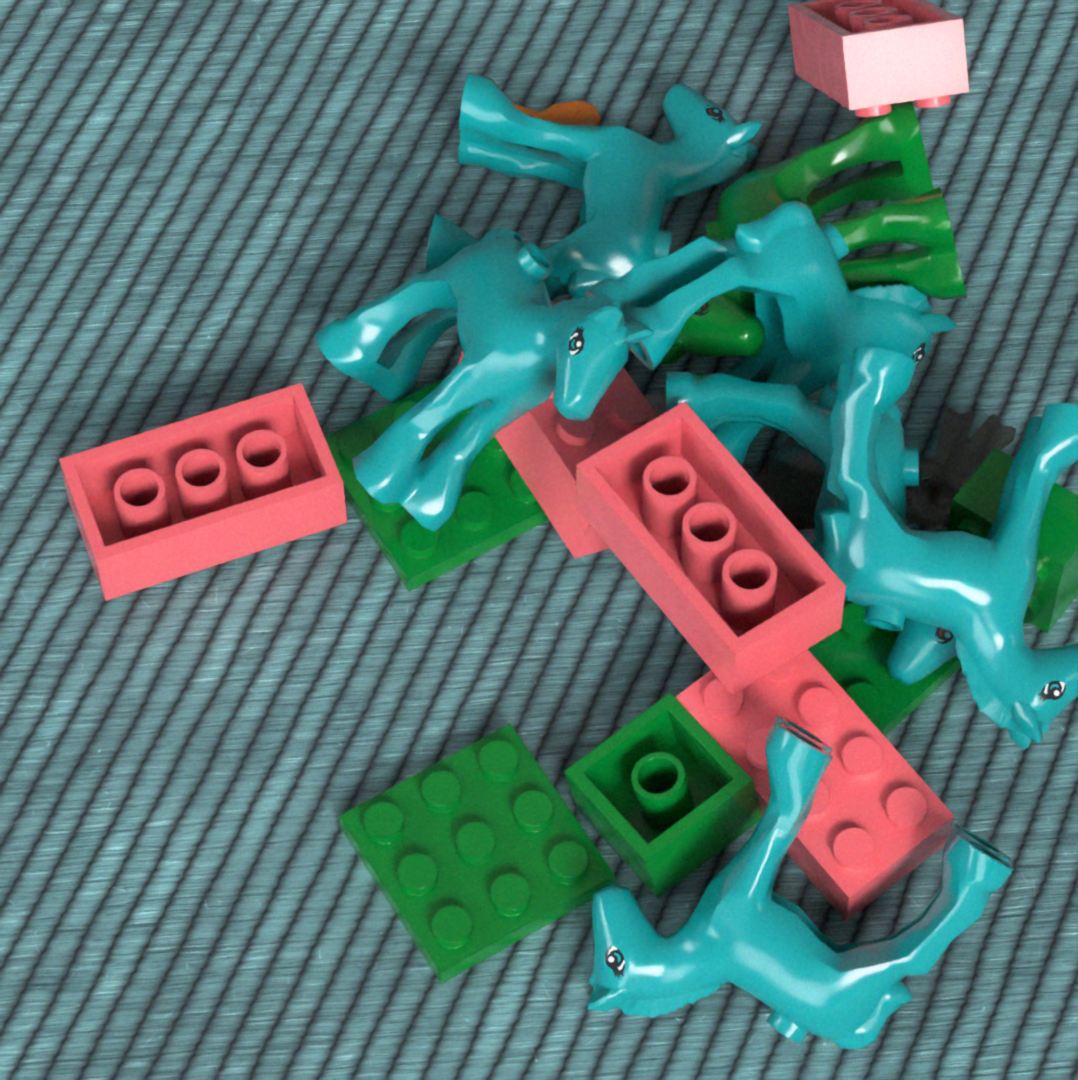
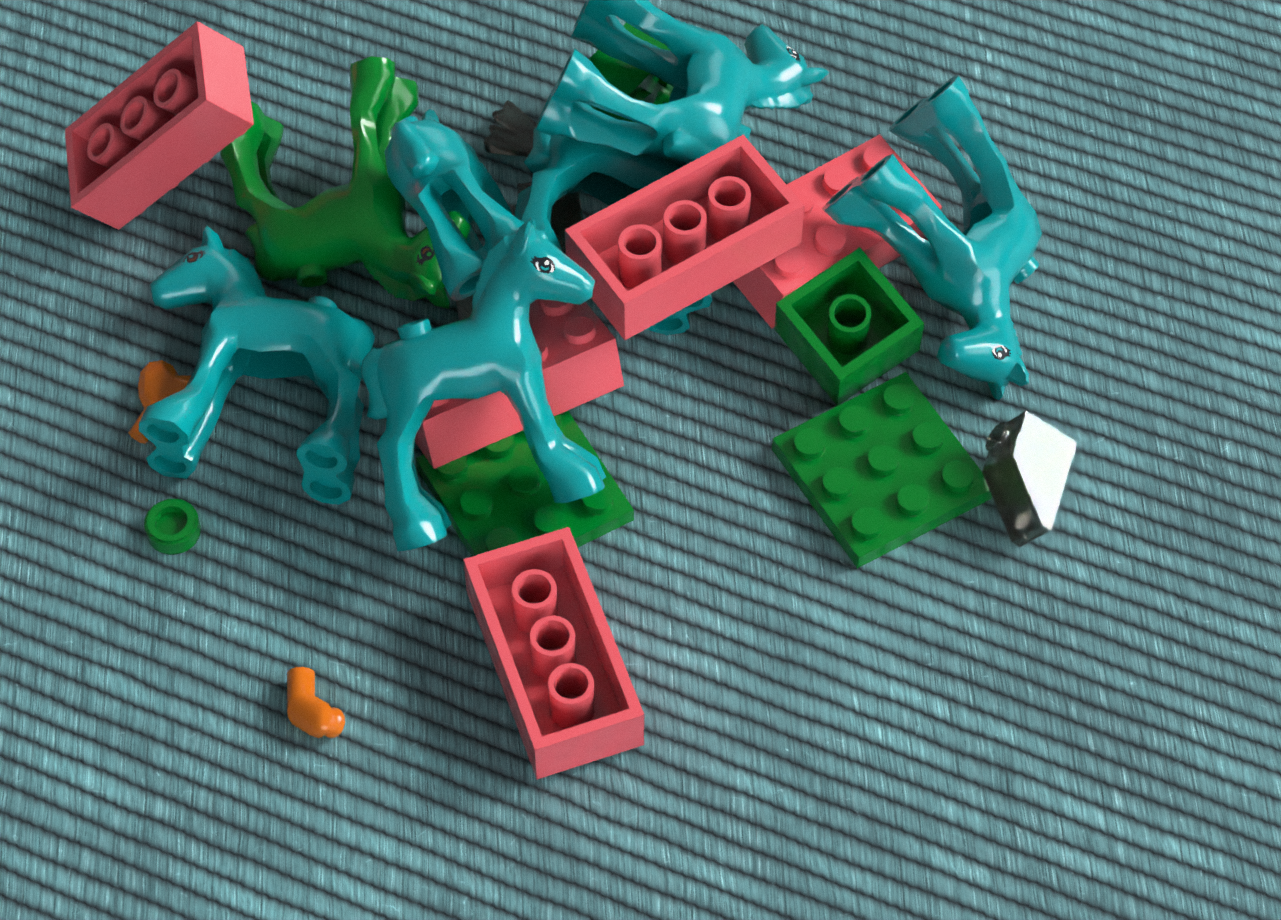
camera: 90 degrees left, 0 degrees up
(162, 283) = (309, 711): none -> orange arm
(393, 154) = (172, 526): none -> green tile
(451, 1001) = (1027, 474): none -> clear smoke slope

